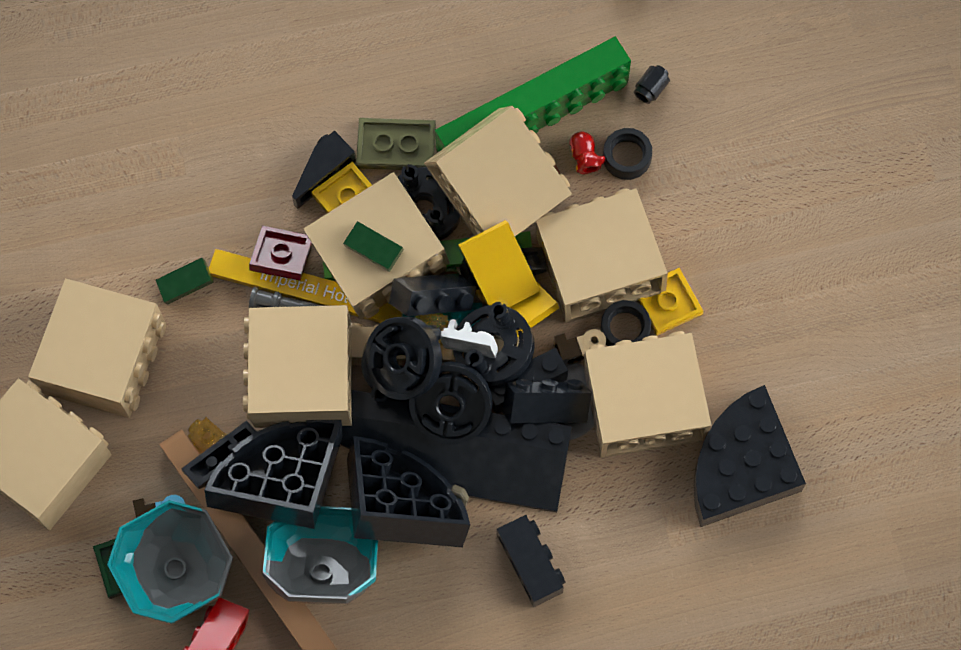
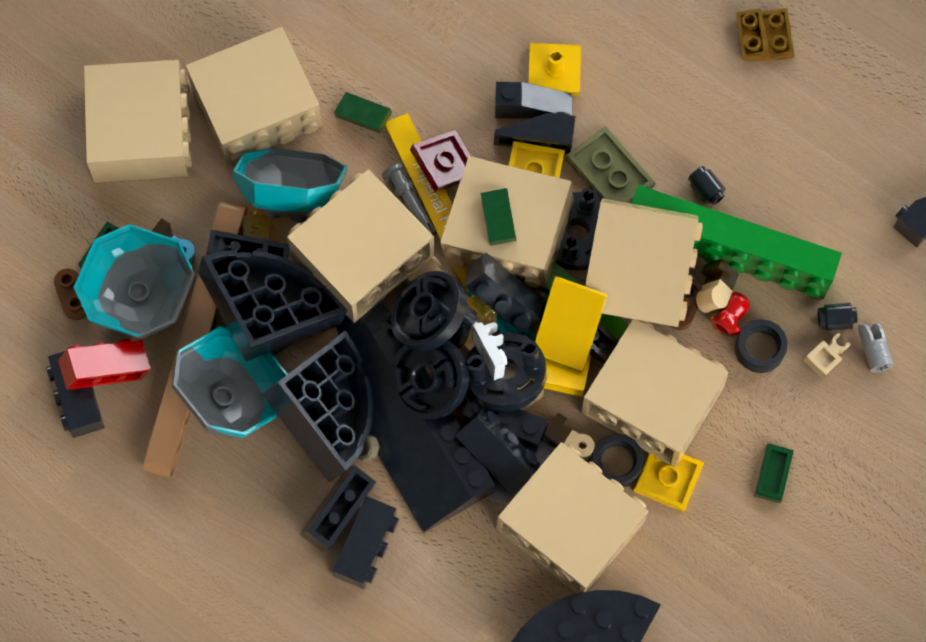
camera: 45 degrees right, 0 degrees up
(127, 622) = (68, 294): none -> reddish brown plate
(195, 377) = (288, 181): none -> rock
(279, 116) = (555, 67): none -> yellow tile
(288, 154) = (529, 100): none -> black slope
(472, 87) = (707, 186): none -> black brick
(488, 559) = (337, 508): none -> black brick
(558, 144) = (717, 286): none -> leg
(673, 117) = (825, 356): none -> tan plate
(697, 77) = (875, 347): none -> light grey hinge
(729, 226) = (773, 473): none -> dark green tile

